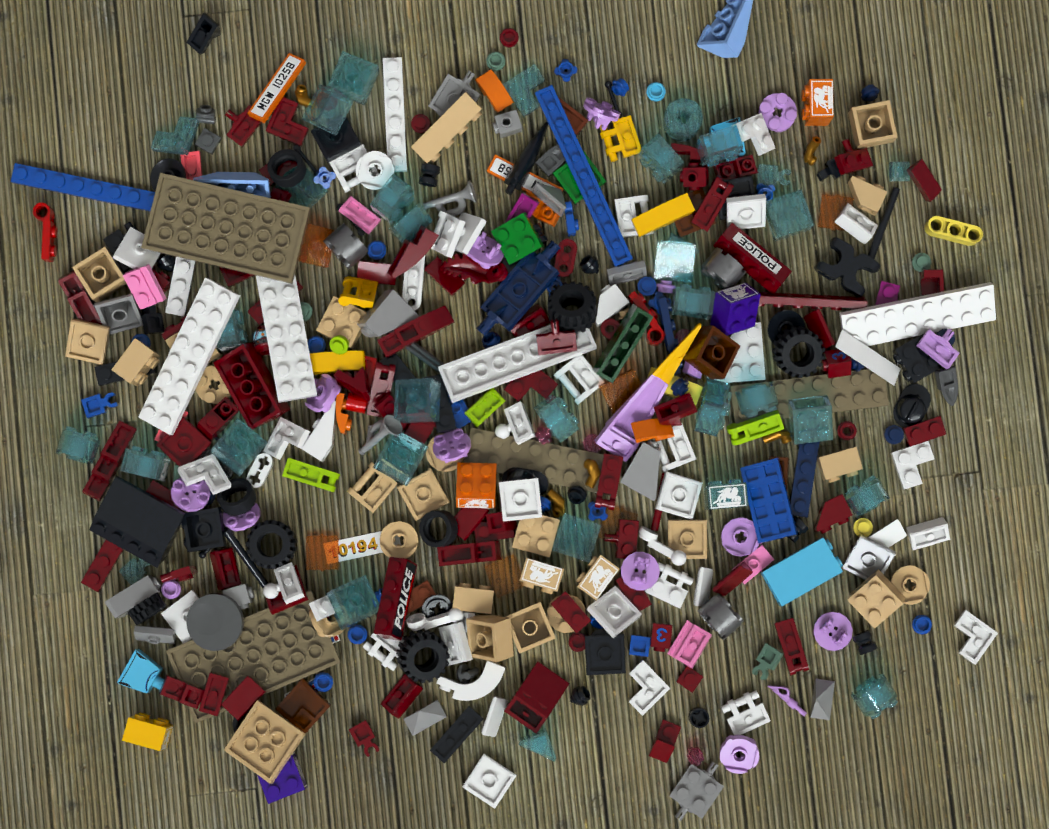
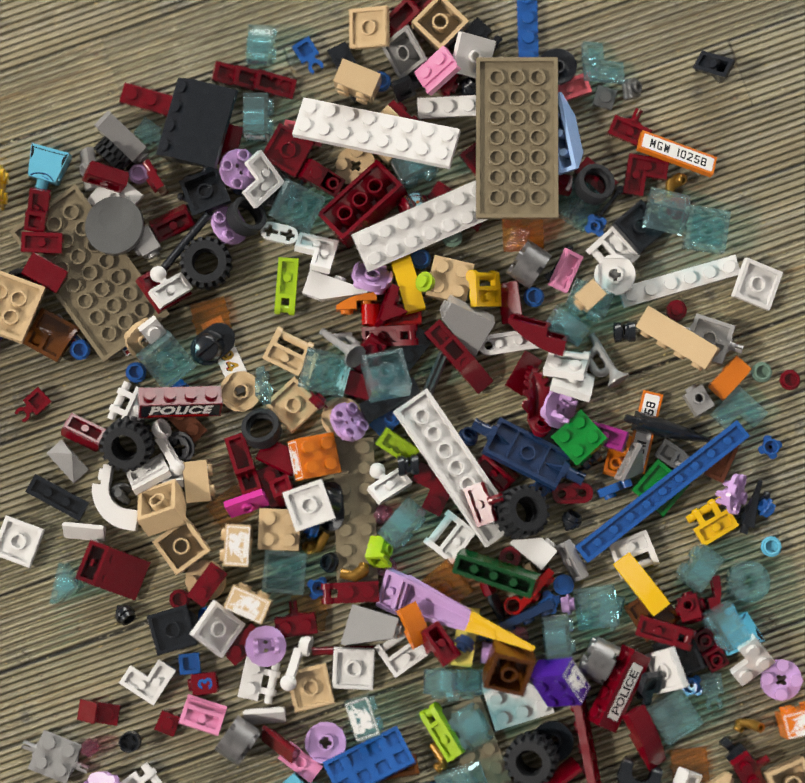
camera: 80 degrees right, 0 degrees up
(166, 619) = (106, 176): none -> dark red slope
(348, 556) = (212, 344): none -> black piece
(389, 196) = (589, 296): none -> tan brick
(401, 518) = (263, 389): none -> clear light blue plate
(414, 45) = (757, 284): none -> white plate
(425, 470) = (318, 400): none -> dark red plate
(504, 405) = (403, 467): none -> black wheel
(504, 558) = (246, 503): none -> dark pink plate
(578, 446) = (379, 552): none -> lime brick
(624, 104) = (748, 517): none -> black piece
(637, 354) = (493, 599): none -> black piece
(755, 229) = (649, 684): none -> black plate
(800, 245) = (645, 736): none -> dark red slope

